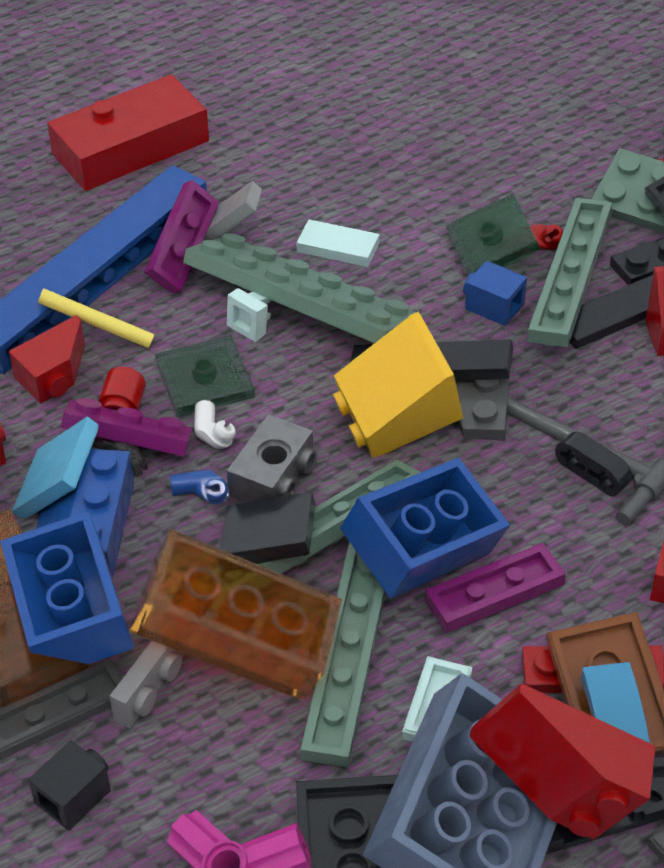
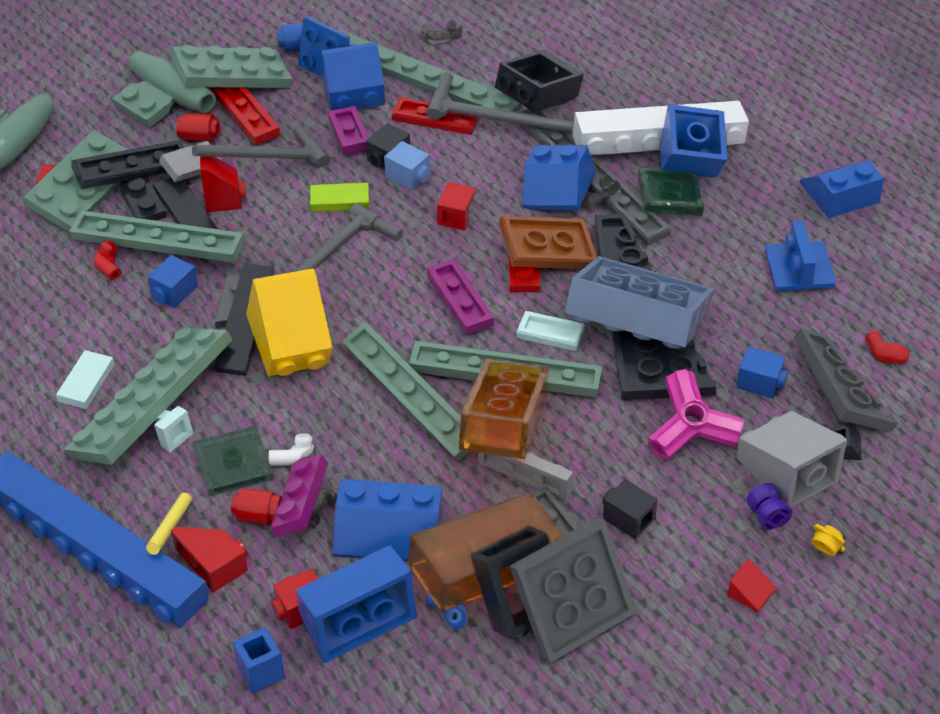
camera: 90 degrees left, 0 degrees up
(56, 468) = (342, 531): medium azure tile -> none
(66, 591) = (496, 481): blue slope -> none
(182, 230) = (74, 469): magenta plate -> none
(202, 483) = (353, 454): blue arm -> none
(234, 211) = (52, 437): light grey tile -> none
(270, 528) = (412, 406): black tile -> none
(271, 461) = (341, 410): flat silver brick -> none
(424, 527) = (425, 313): blue brick -> none
(493, 234) = (107, 280): clear green plate -> none
(567, 760) = (636, 237): red slope -> none
(593, 463) = (353, 241): black beam -> none
(615, 697) = (582, 231): dark azure slope -> none

